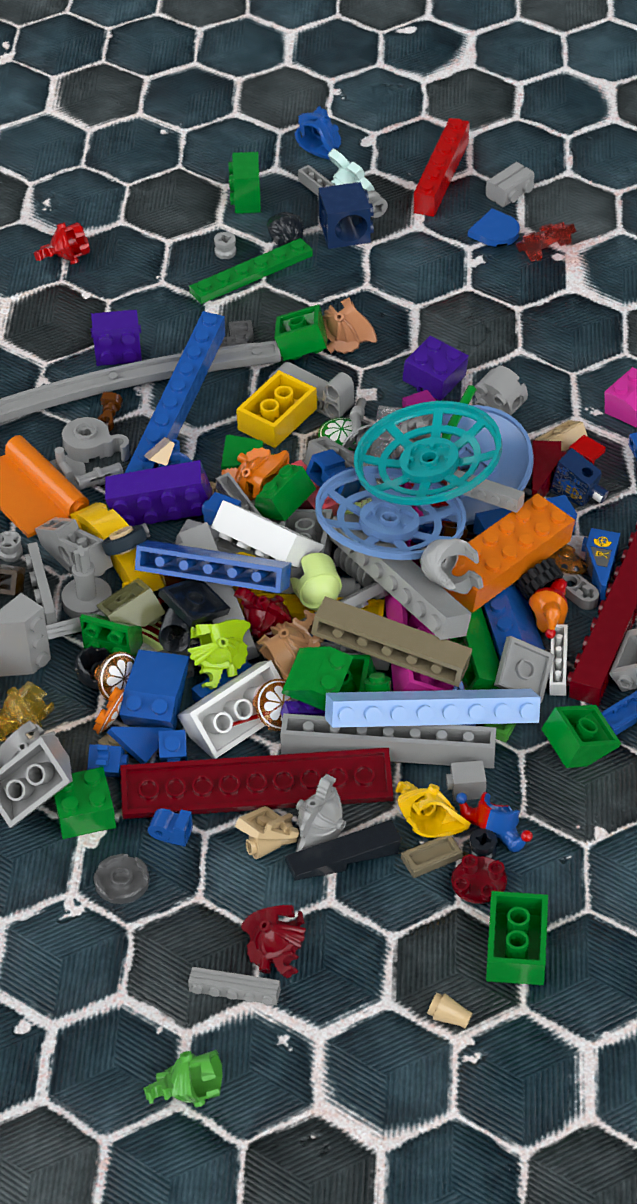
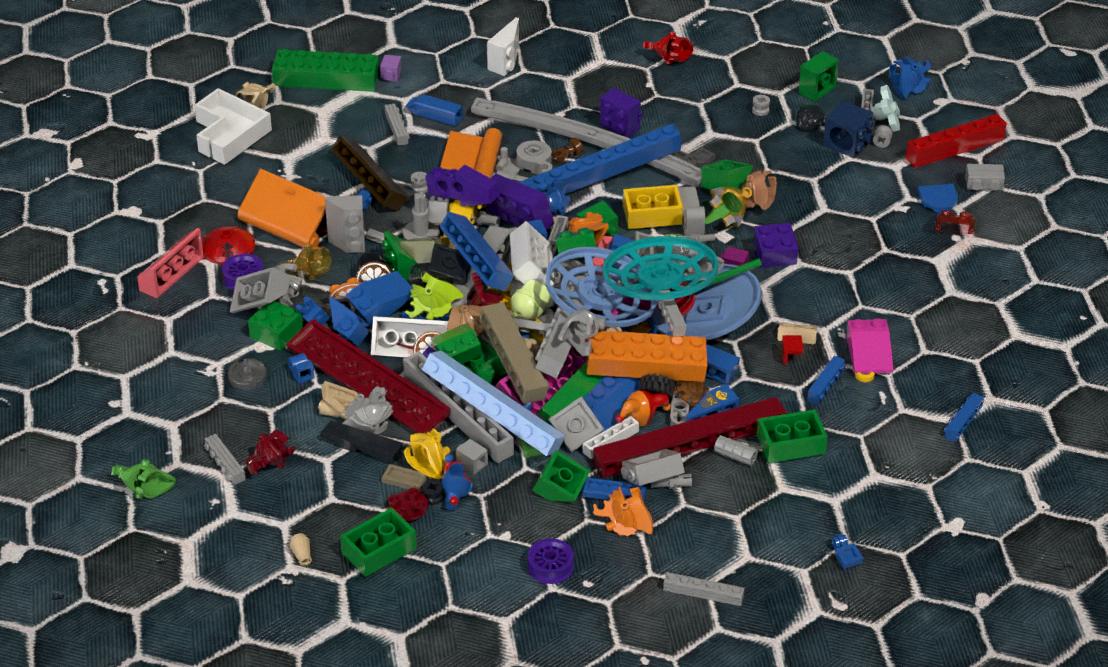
camera: 45 degrees right, 5 degrees down
(39, 579) = (403, 213): light grey plate -> none
(111, 506) = (462, 184): none -> dark purple brick
(124, 540) = (453, 206): black wheel -> none
(161, 452) = (535, 179): tan slope -> none
(250, 271) = (758, 128): green plate -> none
(343, 355) = (728, 204): none -> piece
(501, 390) = (788, 282): light grey brick -> none
(545, 464) = (755, 340): dark red slope -> none
(577, 479) = (761, 363): dark blue torso -> none

